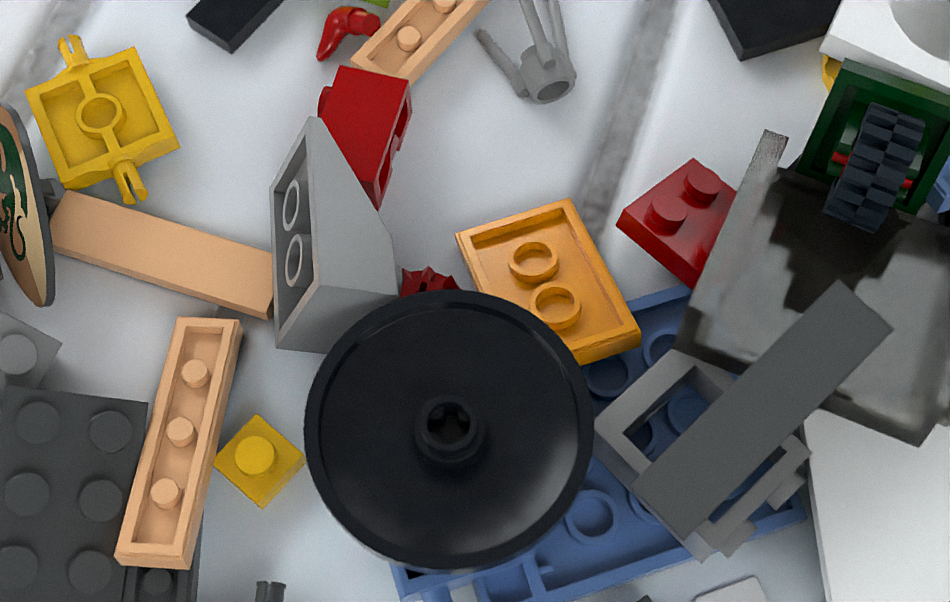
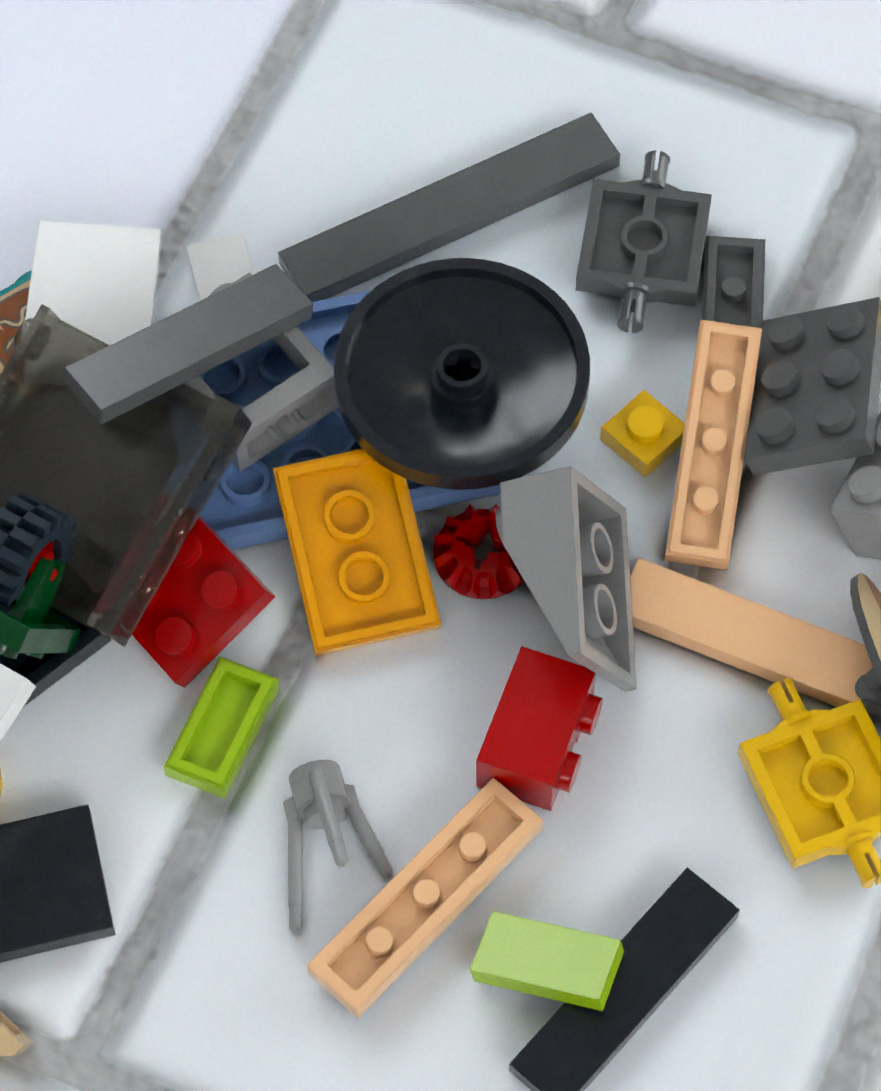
camera: 175 degrees left, 5 degrees down
(342, 22) = (539, 884): red animal -> none
(641, 133) = (222, 727): none -> lime tile

